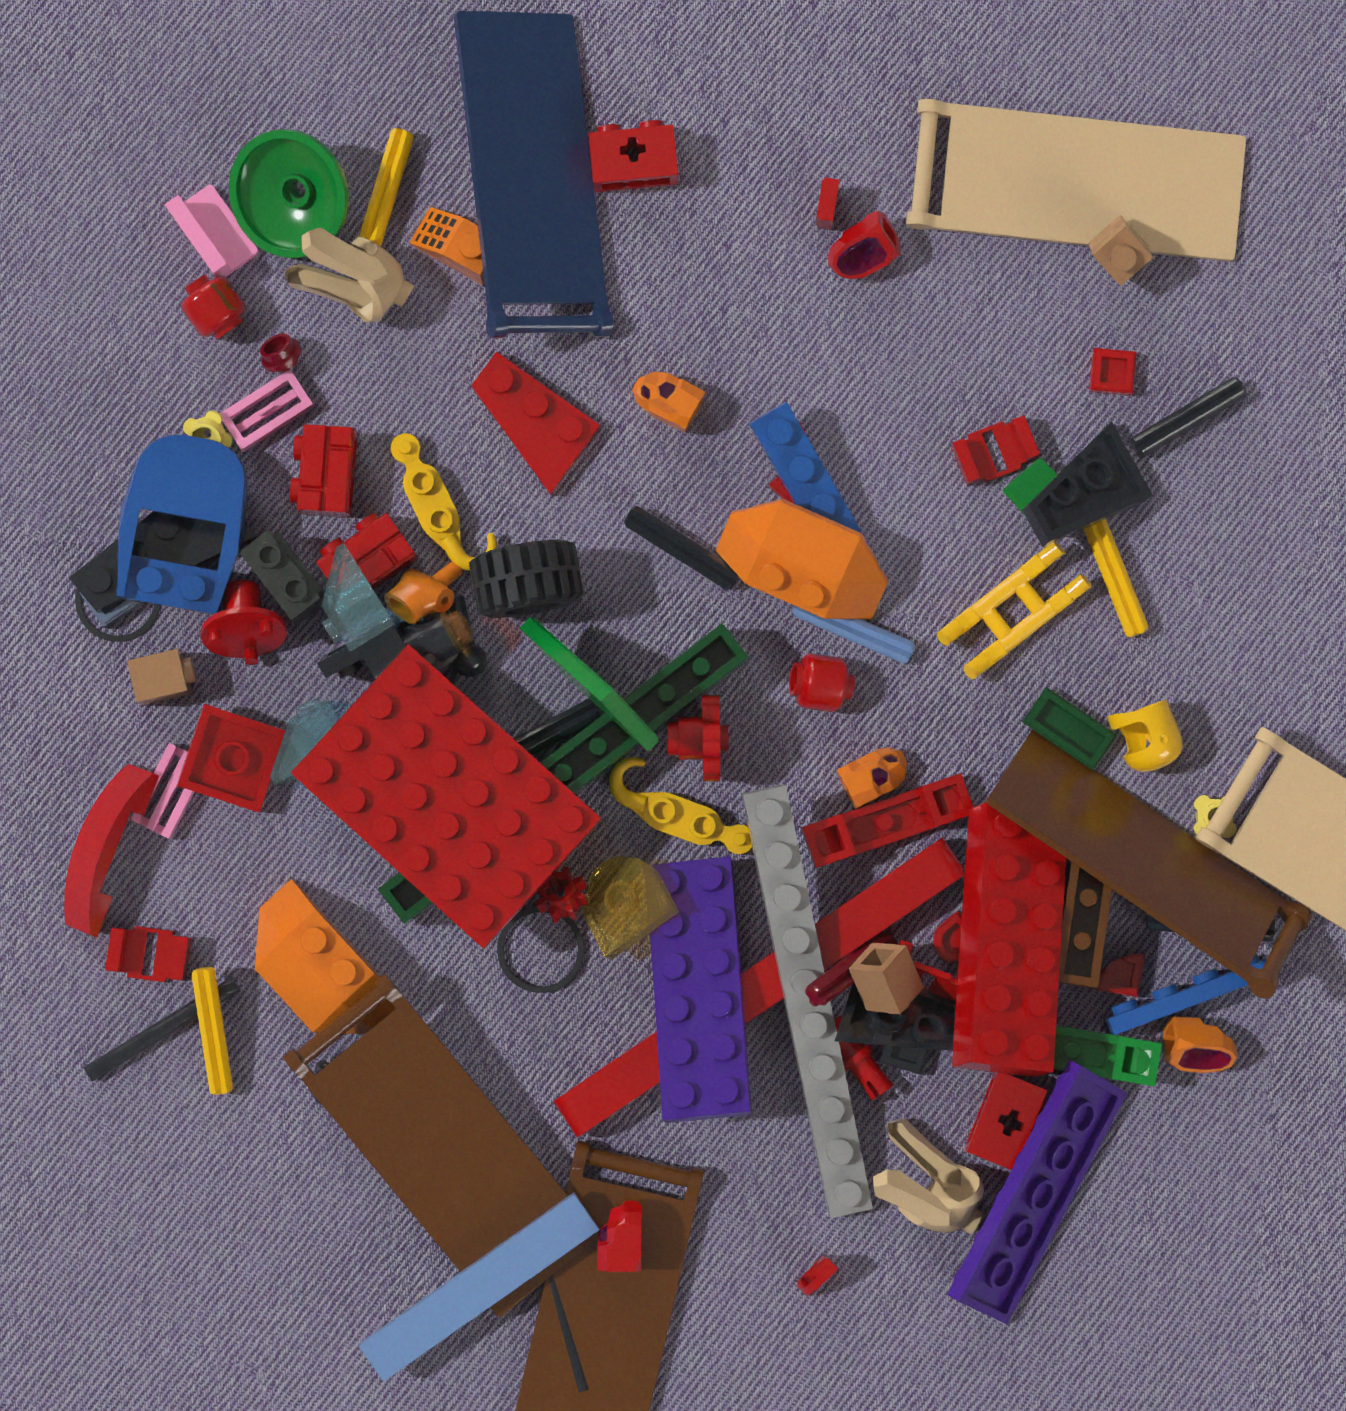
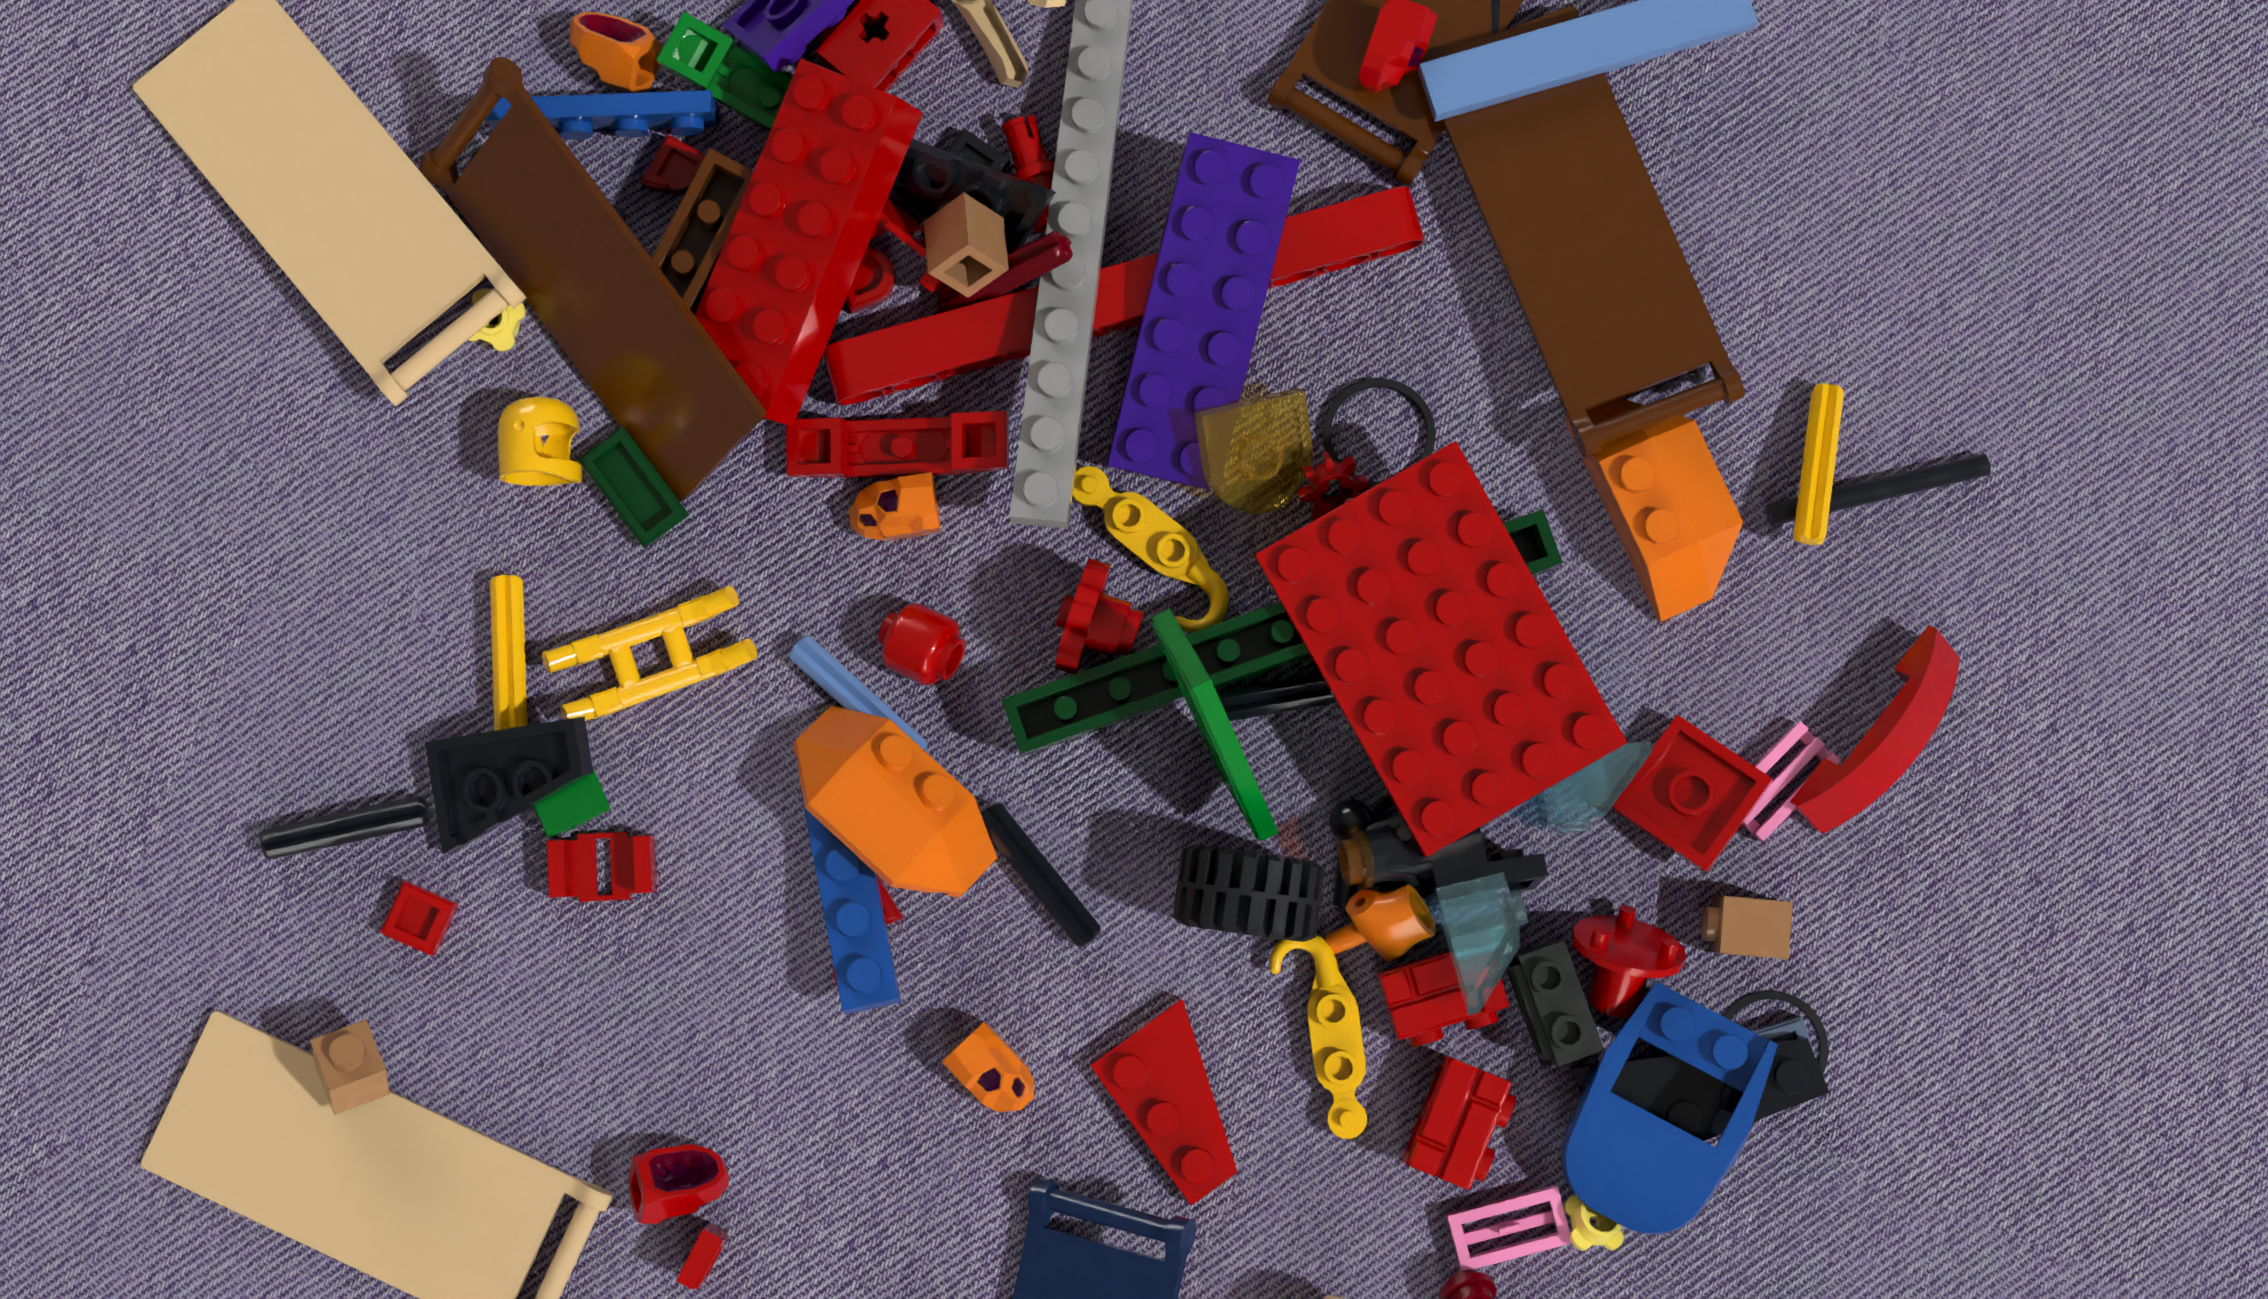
camera: 165 degrees left, 0 degrees up
(128, 949) = (1891, 600): red piece -> none

